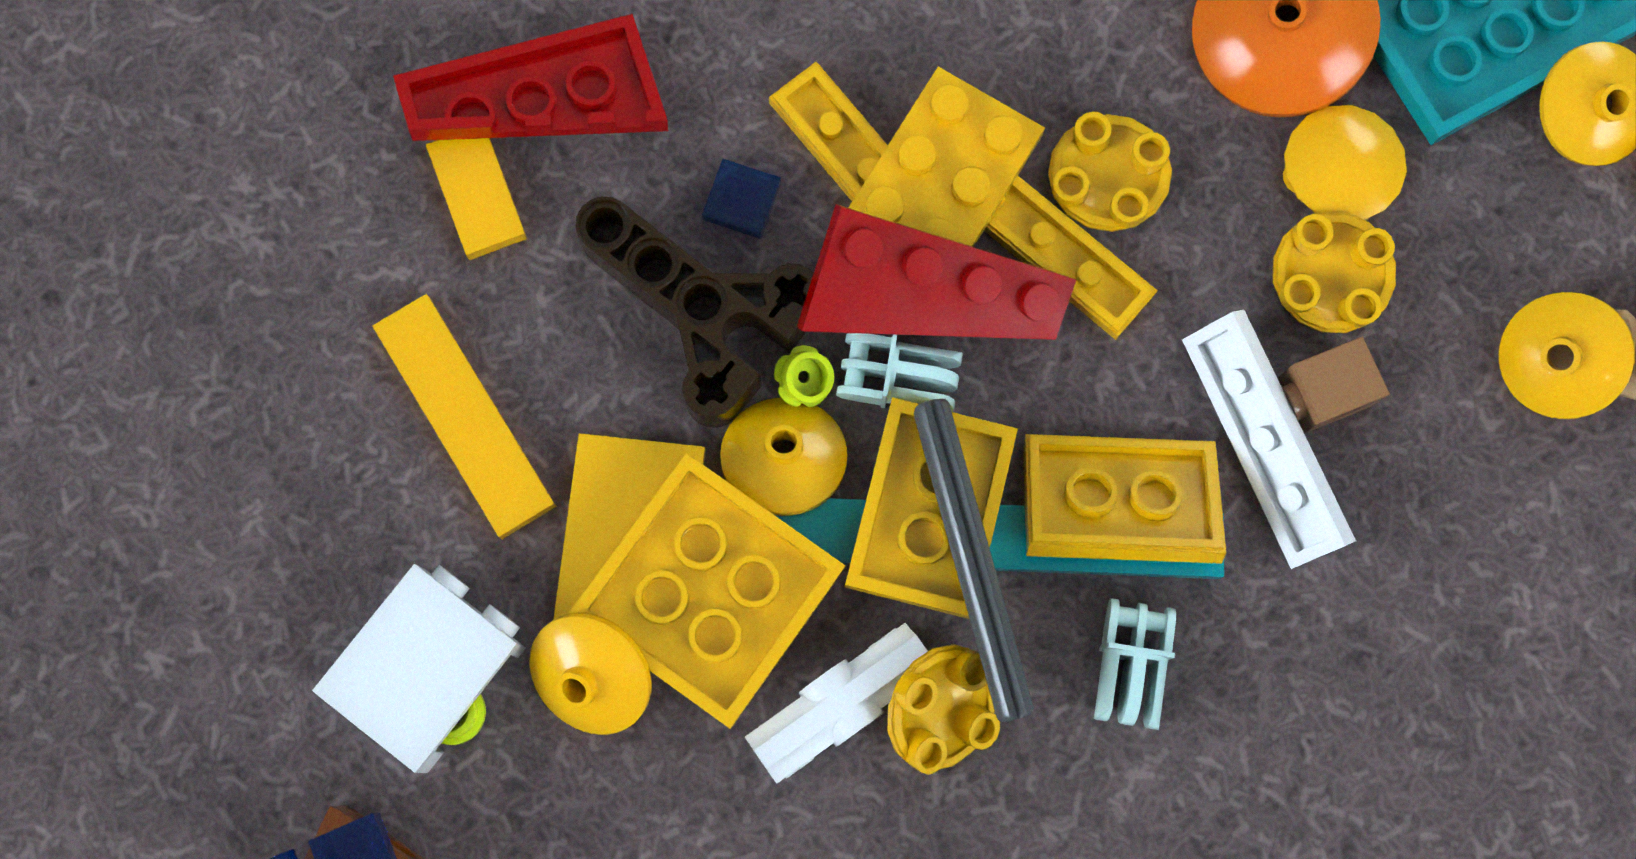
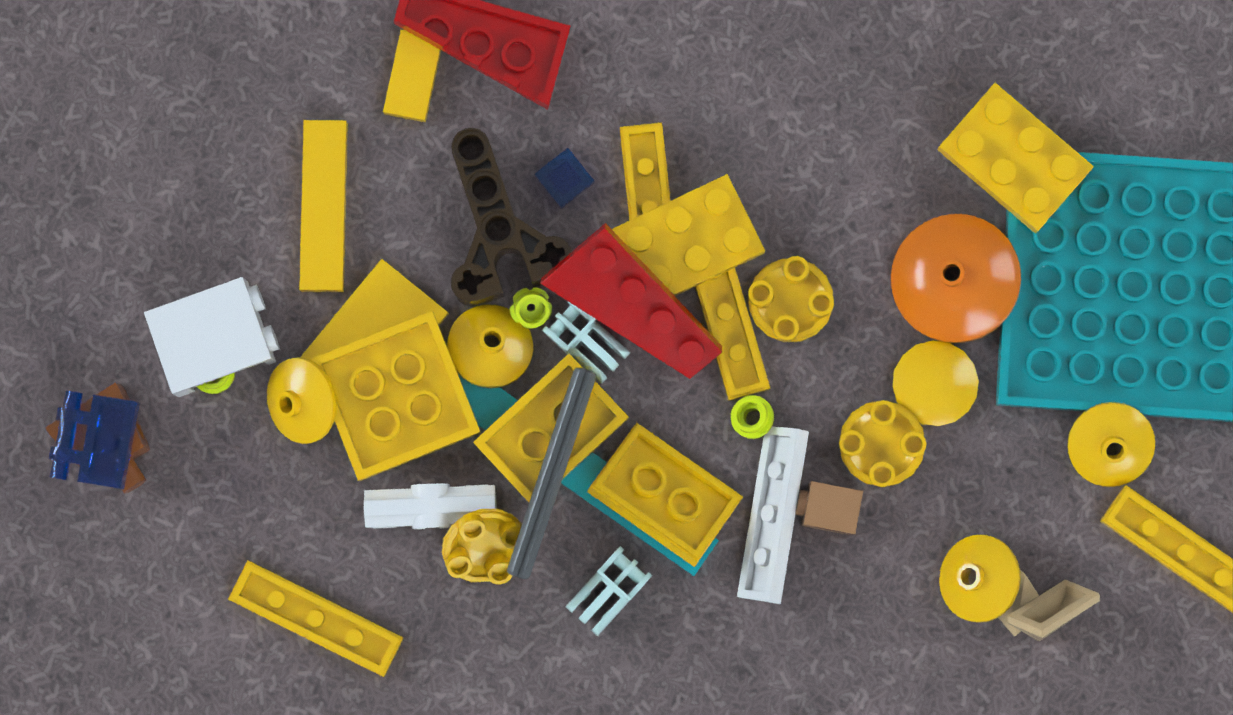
camera: 35 degrees right, 5 degrees up
(1153, 320) = (740, 412): none -> neon yellow plate

